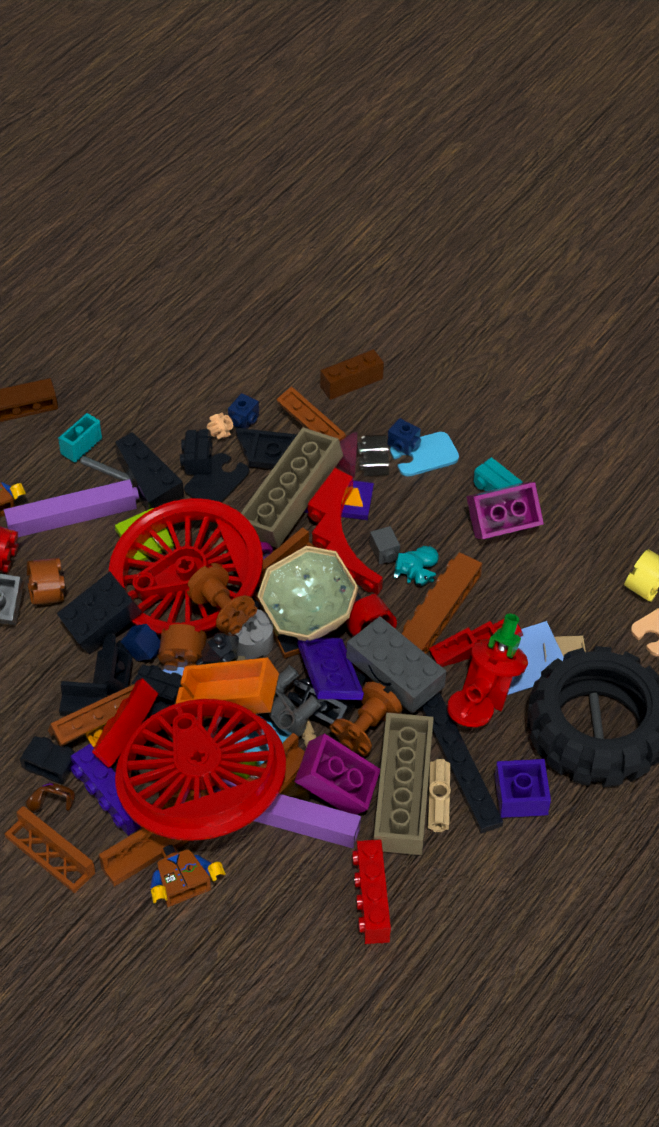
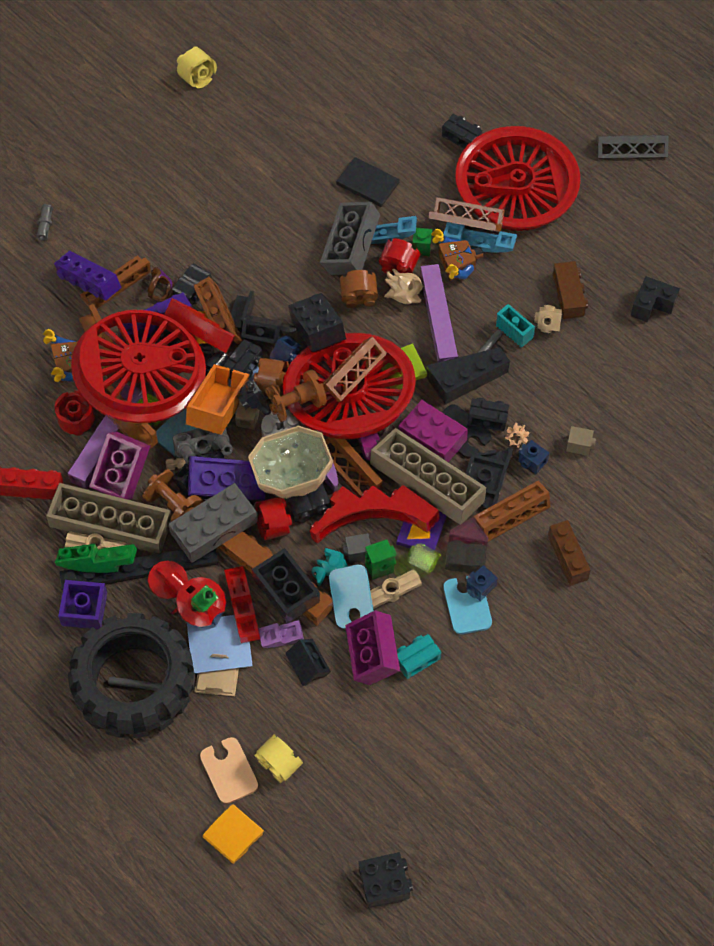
camera: 100 degrees right, 10 degrees up
(30, 332) = (652, 296): none -> black brick
(37, 539) = (404, 287): none -> tan hair
(54, 871) = (87, 275): none -> dark purple brick
(67, 410) = (553, 323): none -> tan brick
(165, 557) = (347, 366): none -> fence
(217, 377) = (580, 441): none -> dark tan brick
(233, 485) = (434, 430): none -> magenta brick
(262, 850) = (74, 413): none -> red brick
(385, 485) = (423, 557): none -> clear neon green brick
(401, 516) = (380, 559): none -> green brick
(428, 511) = (402, 585): none -> tan piece
(441, 540) = (349, 591): none -> medium azure piece
(459, 582) = (286, 585): none -> black brick
(462, 781) = (91, 559): none -> green slope
(501, 600) = (280, 635): none -> medium lavender slope
(529, 574) = (307, 661): none -> black panel

